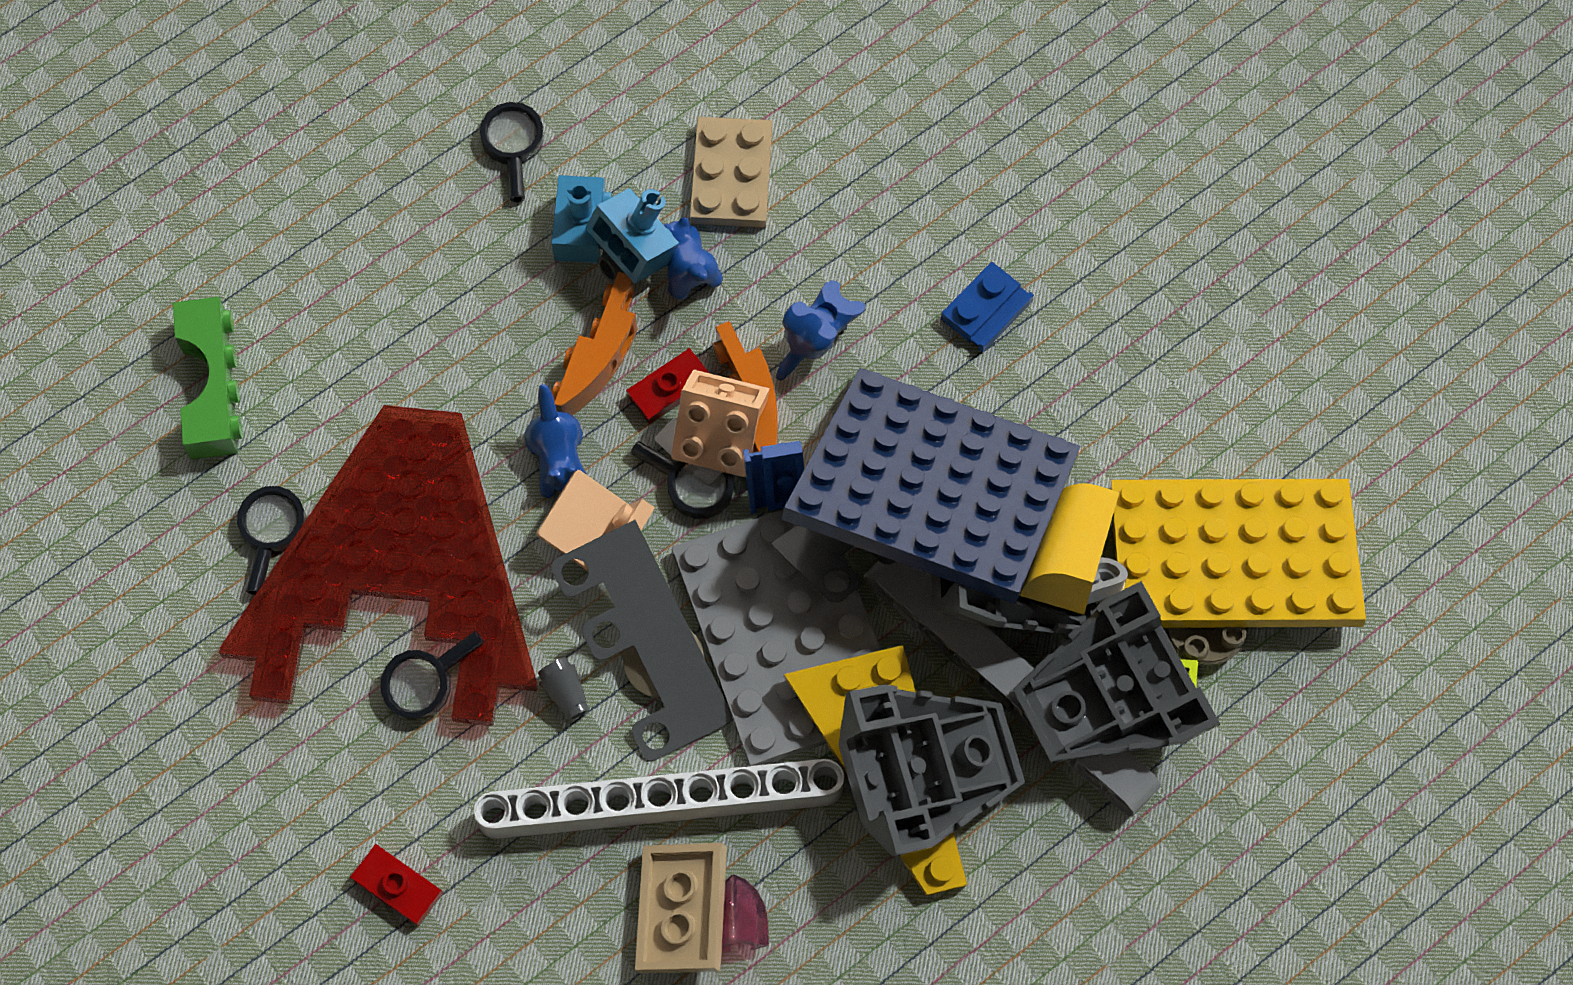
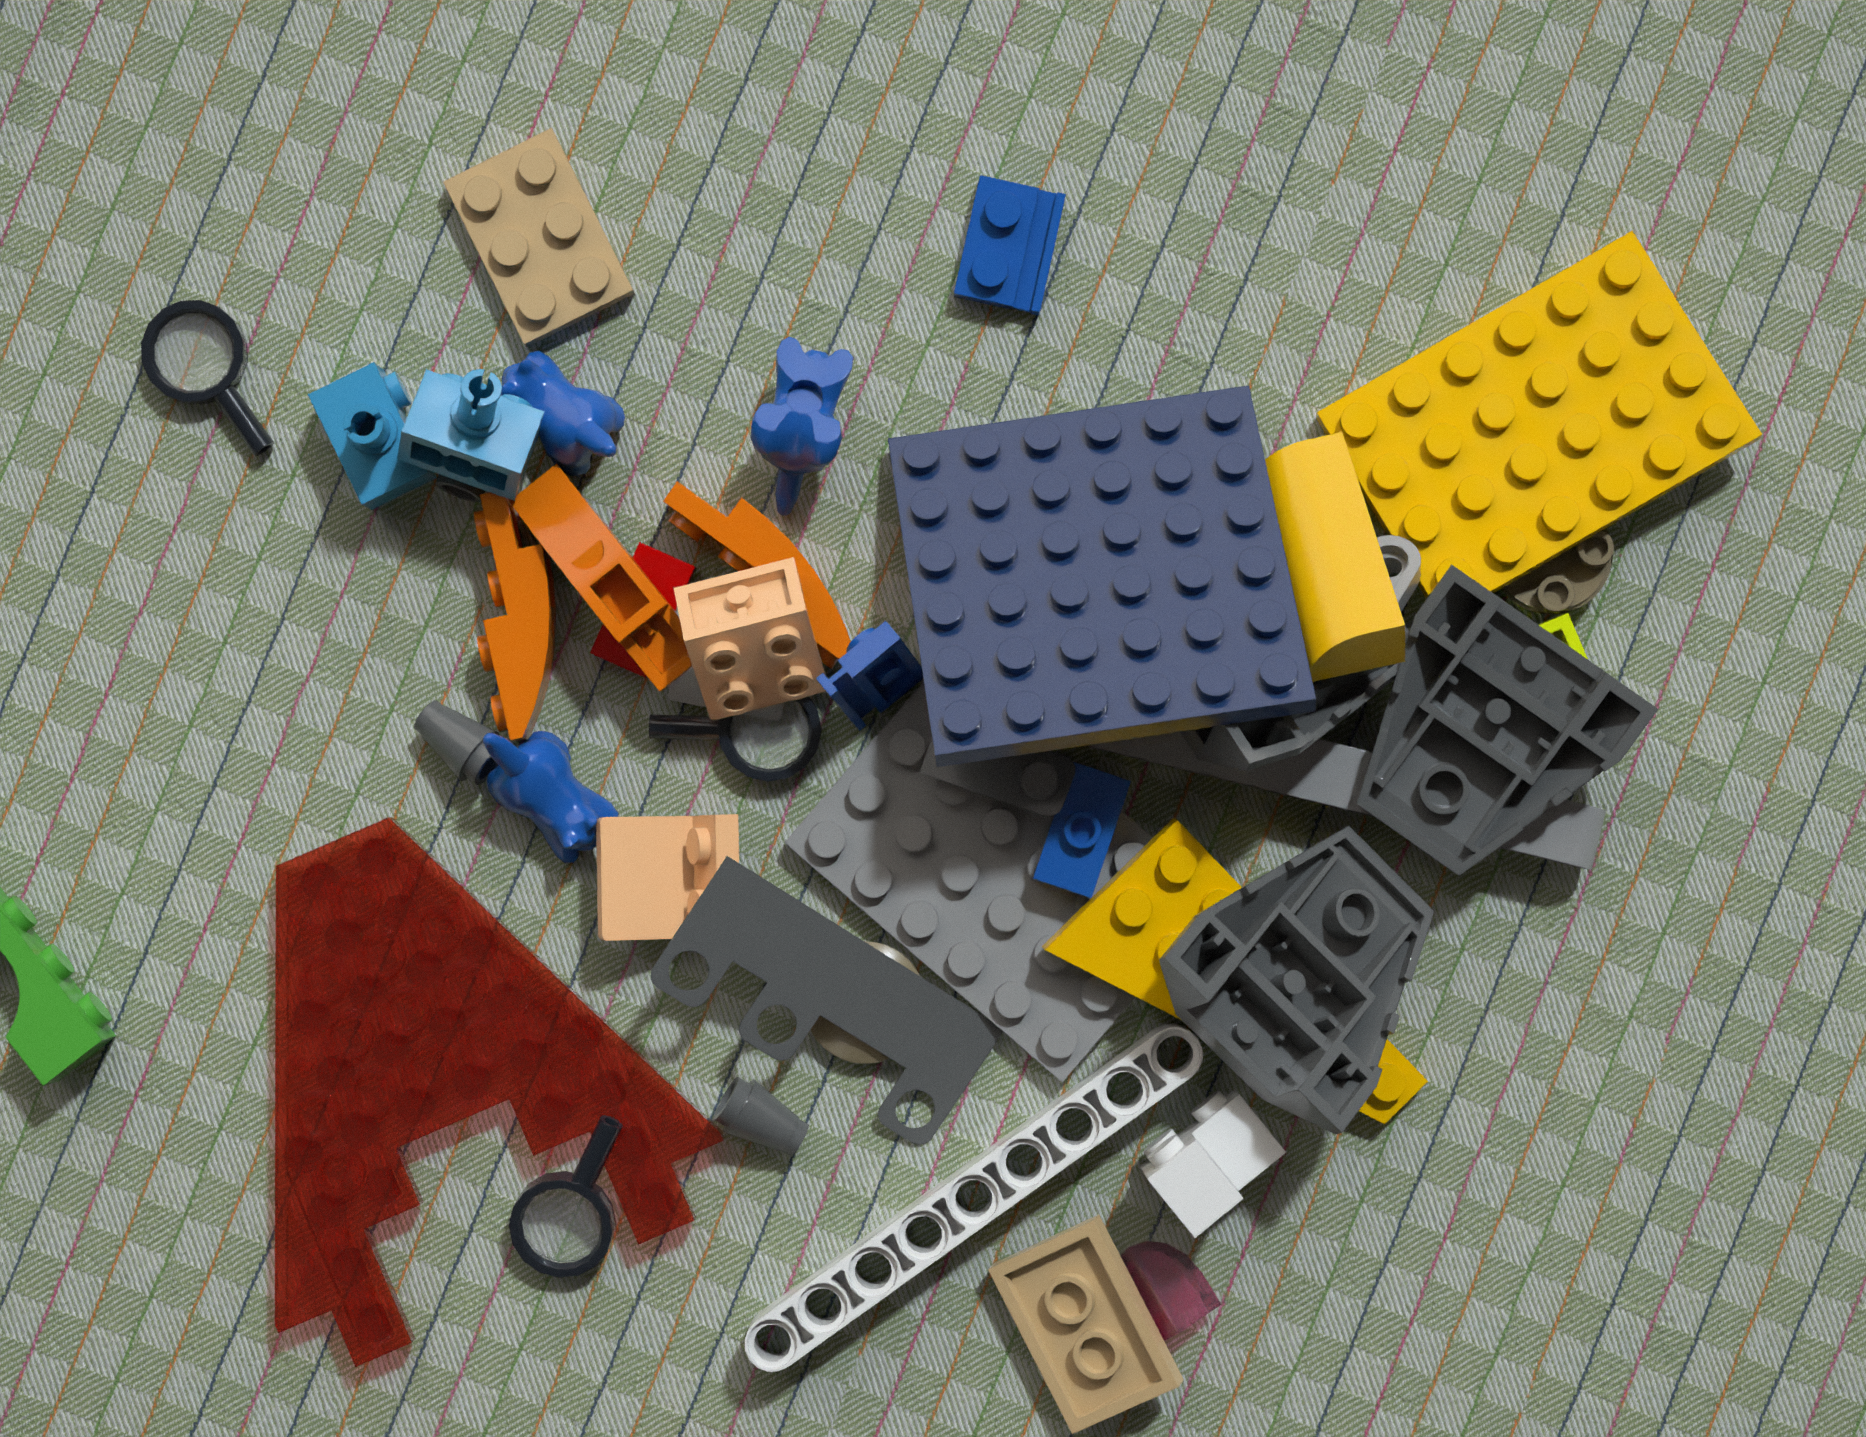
camera: 30 degrees left, 20 degrees up
(268, 524) = (226, 1111): piece -> none
(523, 396) = (457, 741): none -> dark grey cone
(660, 350) = (605, 575): none -> orange slope
(810, 855) = (1210, 1160): none -> white brick
(844, 625) = (1082, 831): none -> blue plate

